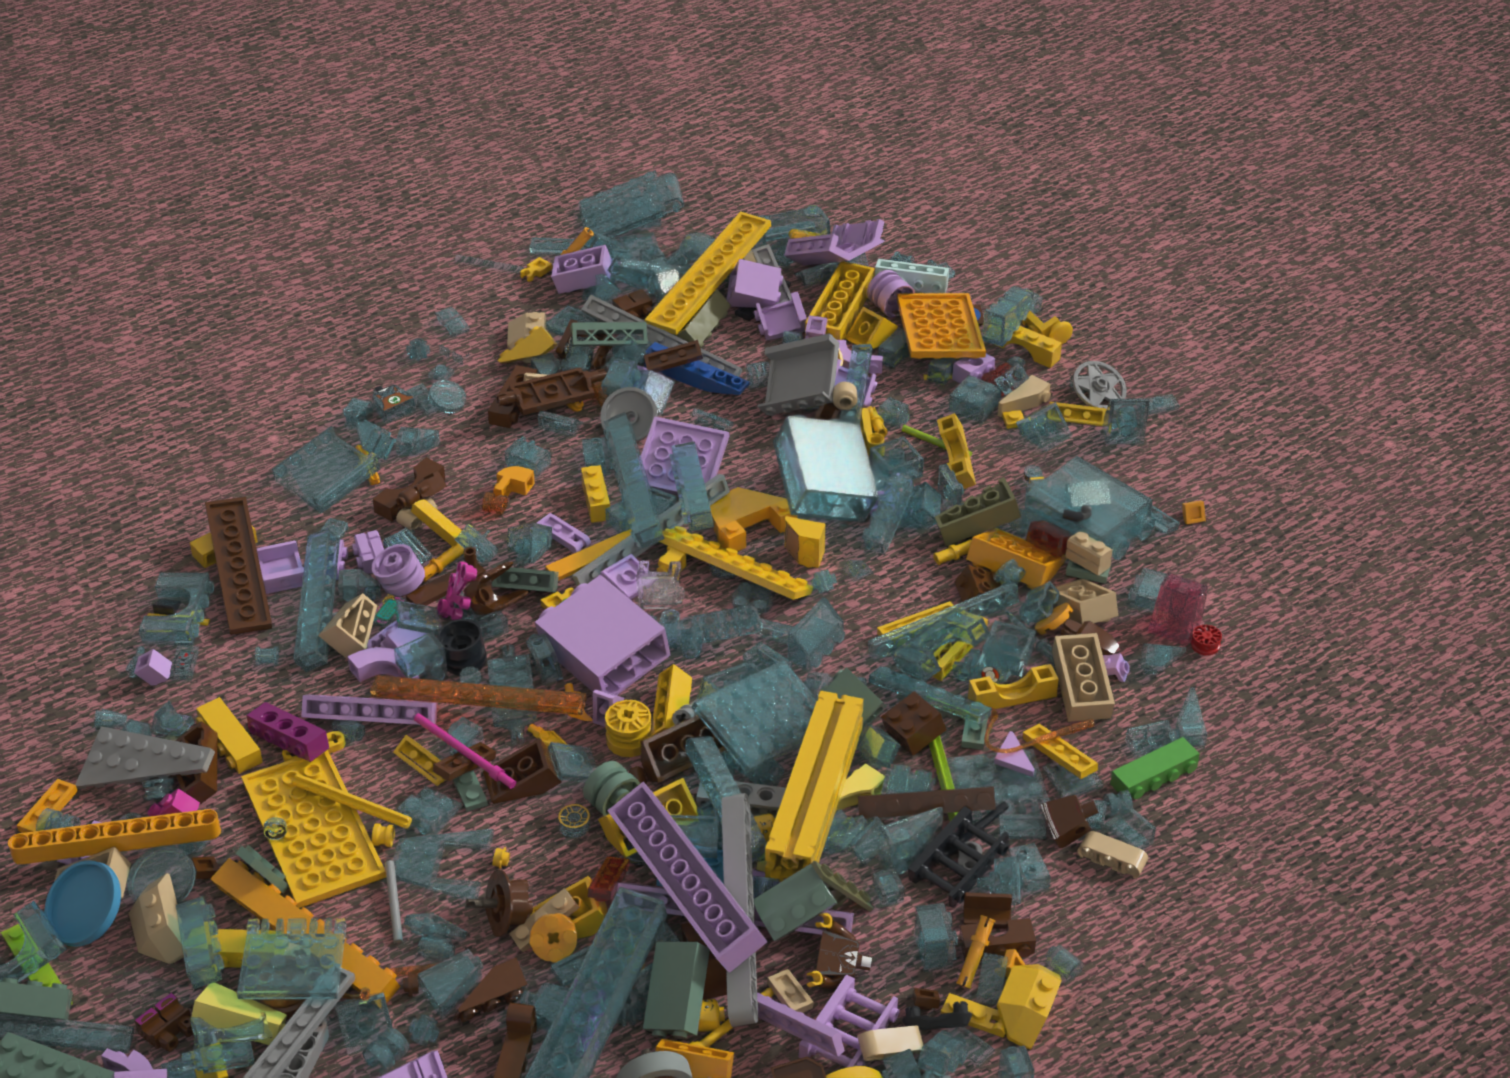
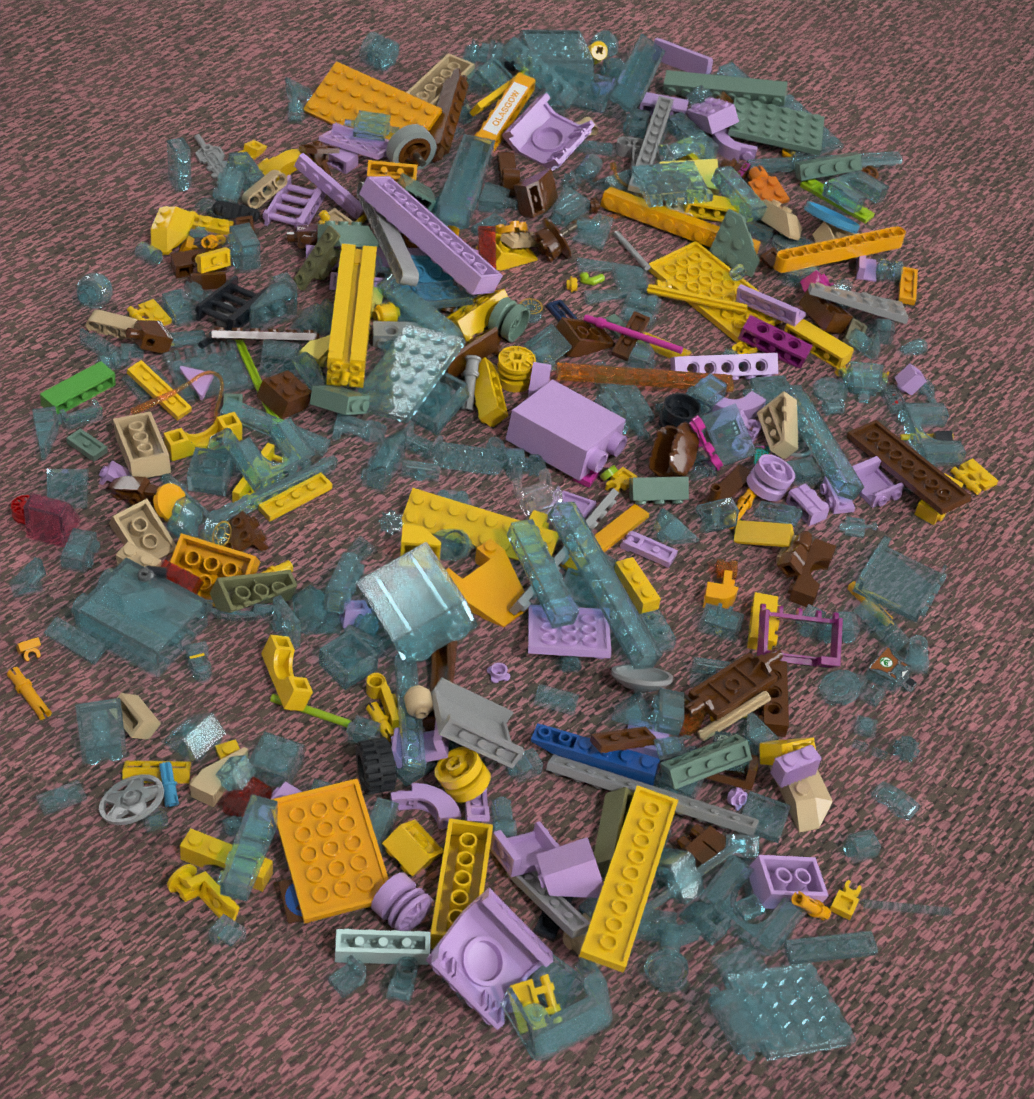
camera: 160 degrees right, 5 degrees up
(132, 992) = (766, 186): none -> orange plate
(155, 564) = (979, 476): none -> yellow plate
(207, 675) = (863, 379): none -> clear light blue torso
(254, 681) = (830, 389): none -> clear light blue tile
(269, 767) = (769, 305): none -> lavender fence
(326, 681) = (770, 387): none -> clear light blue plate
(349, 522) = (843, 526): none -> clear light blue hinge
(439, 448) = (809, 629): none -> clear light blue brick
(444, 419) = (822, 661): none -> magenta hinge
(471, 865) = (585, 279): none -> lime arm
(486, 454) = (771, 604): none -> yellow brick
(503, 294) = (862, 846): none -> clear light blue brick
(535, 314) = (795, 766): none -> lavender brick
(535, 834) = (559, 313): none -> dark blue tile
(592, 734) = (543, 355): none -> clear light blue wheel
(757, 447) = (498, 668): none -> lavender plate
(762, 551) = (454, 544): none -> clear light blue piece
(891, 373) = (376, 765): none -> black tyre
(990, 901) = (213, 260): none -> yellow tile
(1062, 876) = (151, 311): none -> yellow plate
(1068, 393) = (169, 784): none -> dark azure axle
(1095, 442) = (137, 717): none -> tan brick
(1138, 892) = (94, 290): none -> clear light blue brick
(1143, 704) = (87, 445): none -> sand green plate
(1194, 483) = (24, 687): none -> light orange pin
(1196, 568) = (28, 579): none -> clear light blue slope

